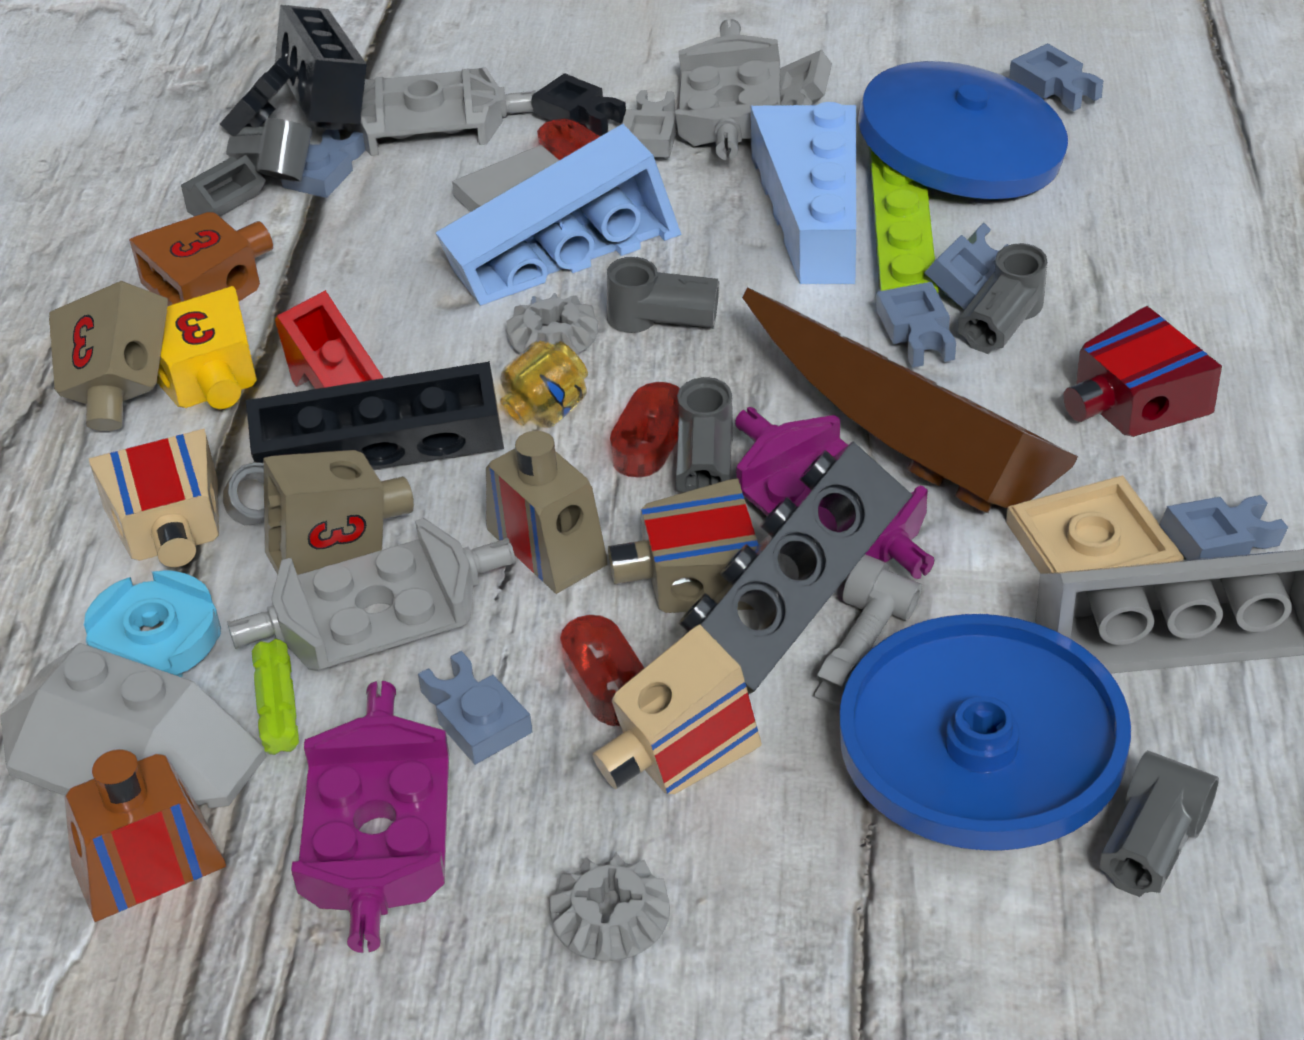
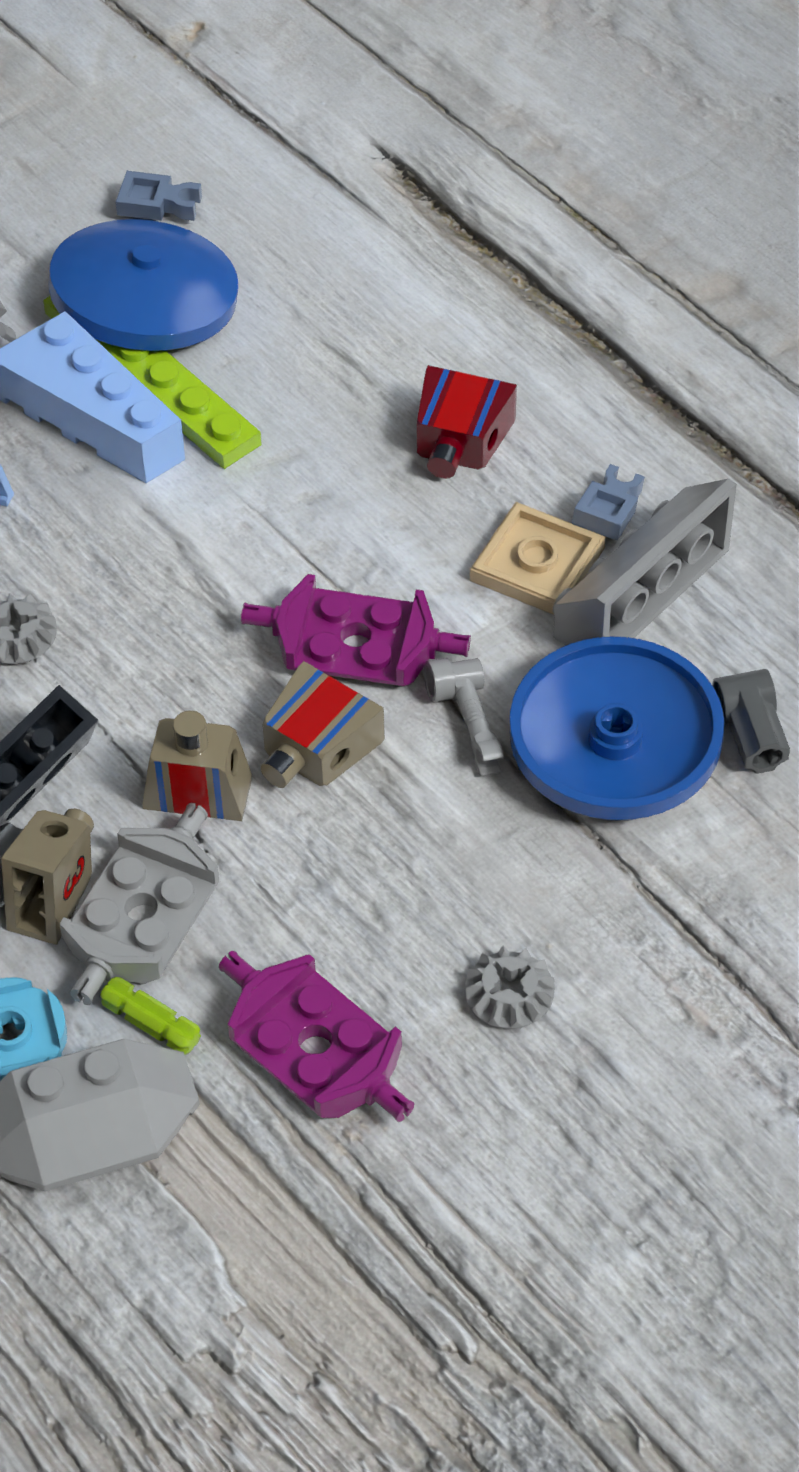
camera: 45 degrees left, 10 degrees up
(135, 833) = (196, 1145): dark orange torso -> none
(475, 714) = (289, 932): sand blue plate -> none
(543, 384) = (78, 669): clear yellow head -> none
(592, 673) = (340, 848): clear red beam -> none
(638, 425) = (166, 666): clear red beam -> none
(643, 296) = (63, 560): dark grey piece -> none
(681, 717) = (442, 843): tan torso -> none
(704, 433) = (227, 643): dark grey piece -> none
(863, 504) = (415, 703): black brick -> none
(915, 416) = (365, 540): reddish brown wedge -> none
(917, 317) = (270, 463): sand blue plate -> none
(964, 267) = (262, 402): sand blue plate -> none
(1007, 298) = (317, 411): dark grey piece -> none

